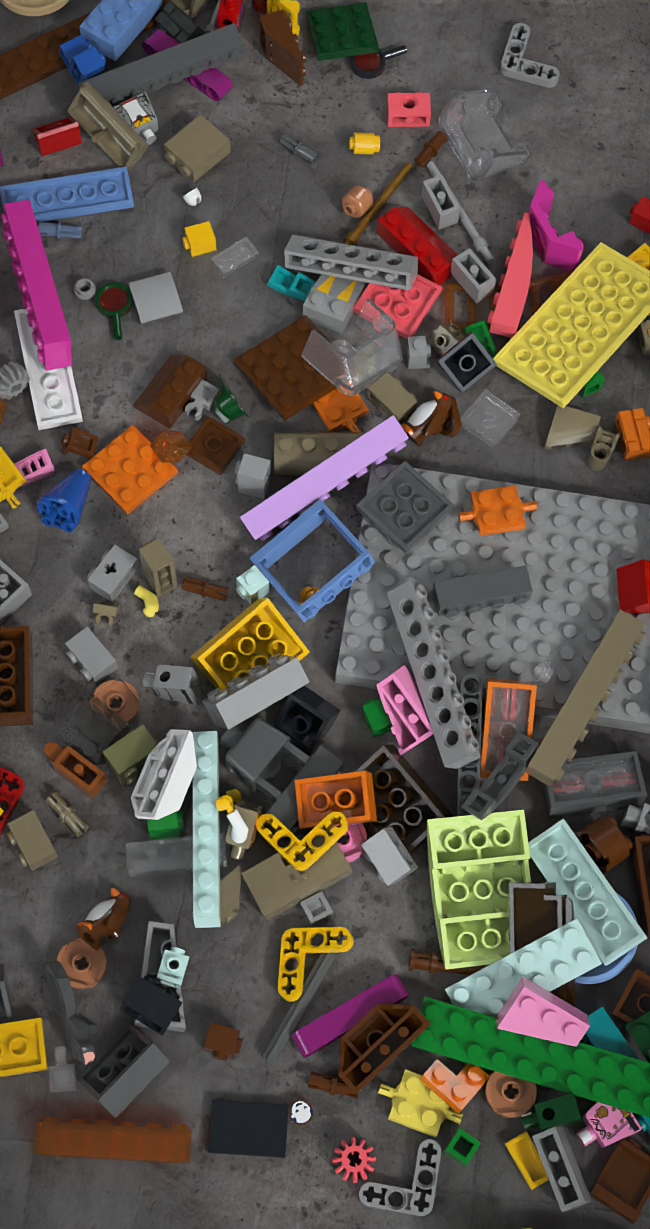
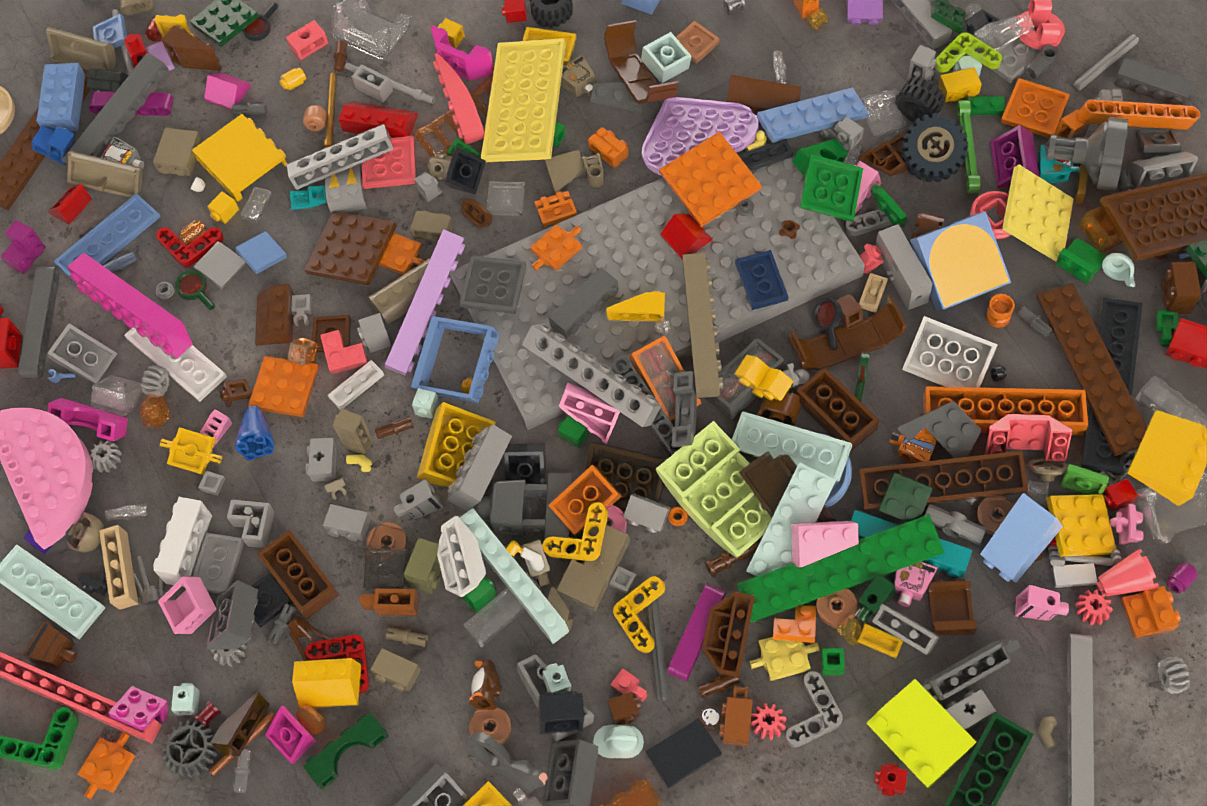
camera: 25 degrees left, 5 degrees down
(138, 262) = (189, 250): none -> red beam
(152, 245) = (191, 231): none -> clear orange brick
(194, 1069) = (618, 741): none -> light aqua piece
(199, 517) = (356, 385): none -> white plate
(202, 475) = (340, 357): none -> coral brick
(204, 312) = (261, 252): none -> medium blue tile
(226, 404) = (321, 301): dark green piece -> none
(244, 1018) = (628, 683): none -> coral plate
(250, 32) = (160, 52): none -> lavender tile
(254, 192) = (238, 155): none -> yellow panel
(290, 110) = (225, 90): none -> dark pink slope
(326, 1132) = (737, 718): none -> dark orange brick
(358, 367) = (386, 220): clear windscreen -> none
(422, 874) = (677, 511): none -> orange plate
(427, 418) = (466, 221): reddish brown animal -> none
(473, 275) = (429, 114): light grey brick -> none
(504, 1128) = (850, 631): none -> clear yellow tile
(530, 469) = (556, 212): none -> orange plate
(538, 637) = (644, 307): none -> yellow slope
(564, 198) = (454, 31): none -> yellow brick
(606, 805) = (763, 379): none -> yellow brick

